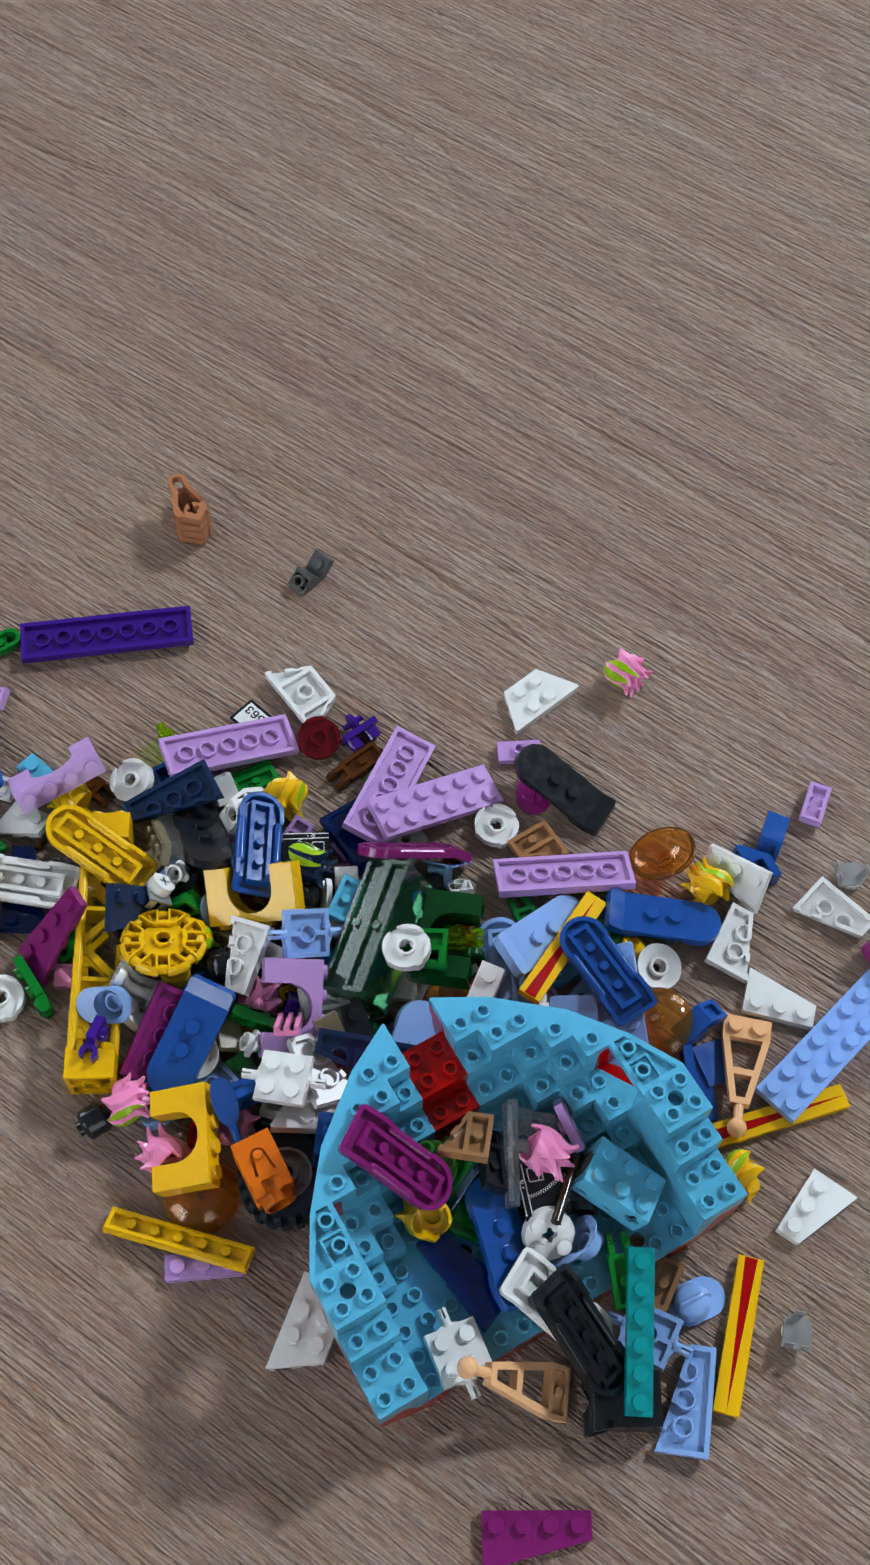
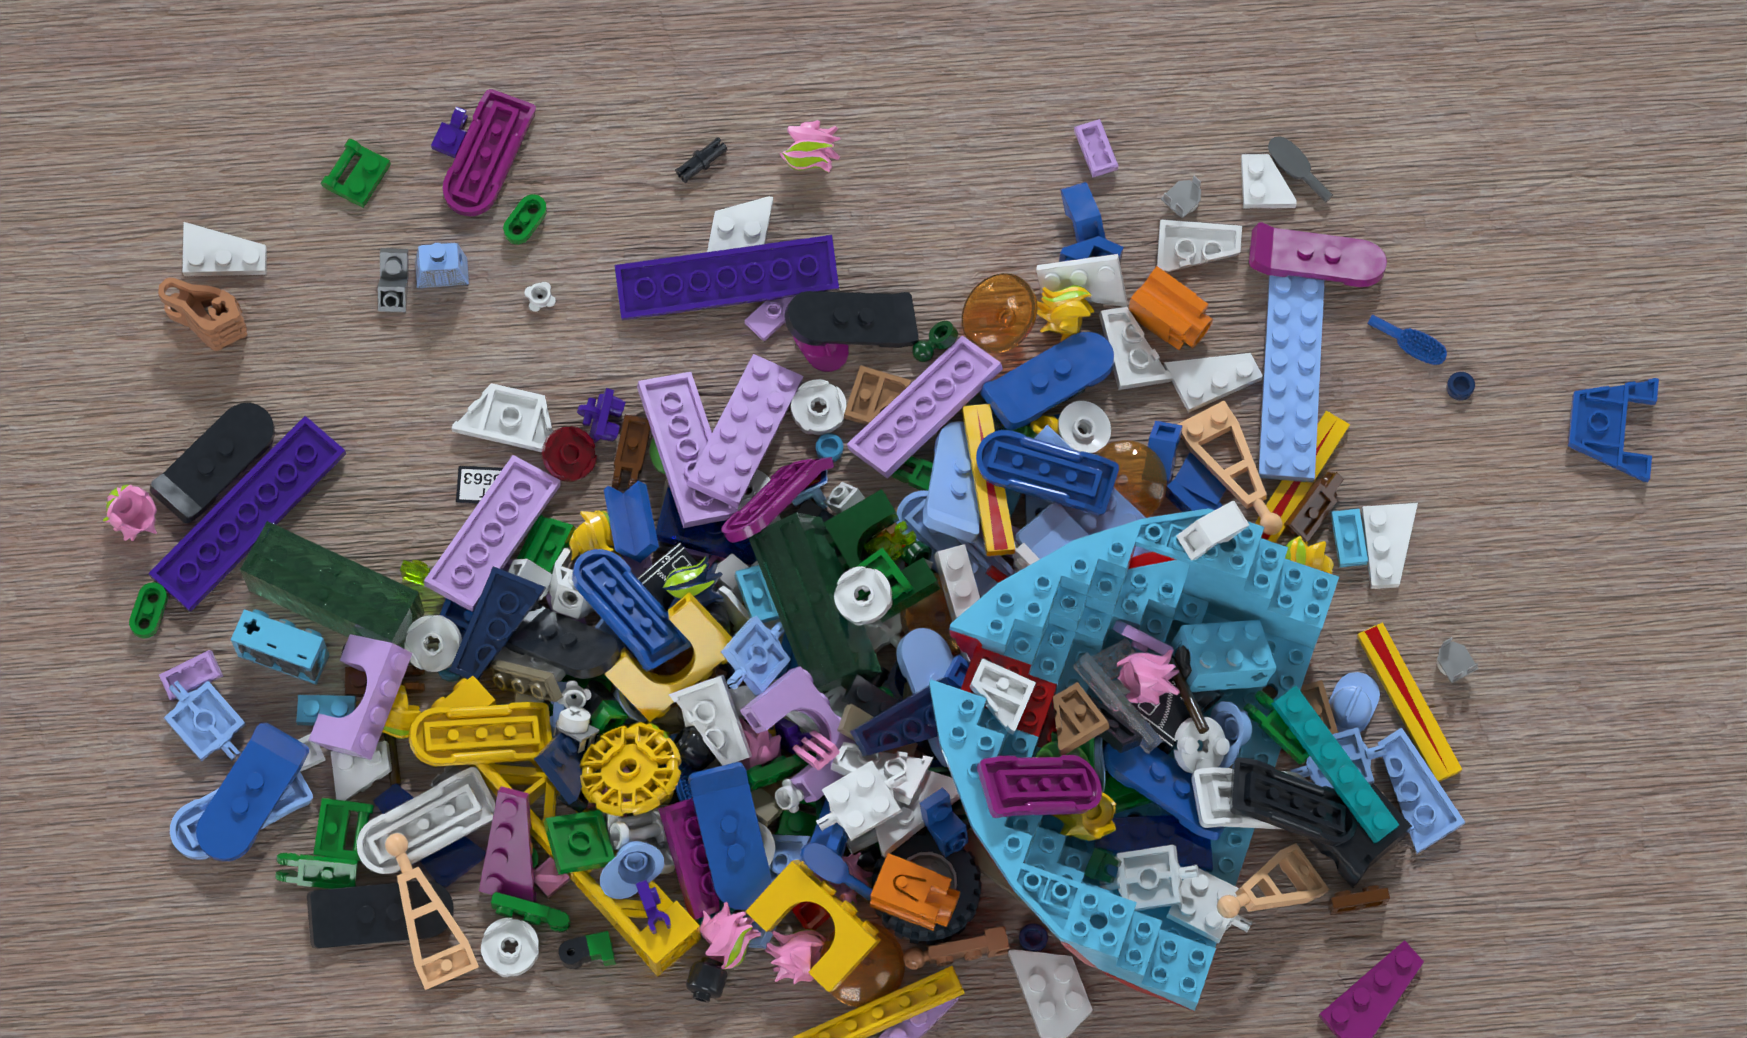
camera: 40 degrees left, 10 degrees up
(39, 1036) = (587, 949): none -> leg
(41, 581) = (130, 511): none -> bright pink hair
(47, 715) = (280, 646): none -> medium azure piece
(90, 960) = (579, 841): none -> green plate
(102, 702) = (329, 587): none -> clear green brick
(118, 594) = (214, 461): none -> black piece
(231, 493) = (220, 254): none -> white wing
(297, 1254) = (993, 943): none -> nougat plate
(314, 801) = (631, 521): none -> blue panel
(344, 582) = (441, 265): none -> light blue torso
(347, 510) = (363, 177): none -> green plate
(387, 636) = (539, 289): none -> white plate
(406, 1257) = (1098, 864): none -> dark green tile
(417, 593) = (523, 220): none -> green plate
(418, 523) = (450, 137): none -> dark purple plate
(428, 1075) = (1004, 692): none -> white wing
(430, 544) = (487, 152): none -> magenta piece
(432, 1299) = (1151, 877): none -> white plate
(482, 855) = (829, 446): none -> dark azure tile
(507, 708) = (726, 277): none -> dark purple plate
(554, 636) = (701, 160): none -> black pin
(590, 1454) = (1368, 898): none -> reddish brown plate
(613, 842) = (940, 336): none -> dark green plate
(670, 1075) = (1212, 529): none -> white slope
(778, 1141) = (1314, 506): none -> reddish brown hinge
(781, 936) = (1170, 310): none -> orange piece
(787, 1182) = (1349, 538): none -> medium azure plate

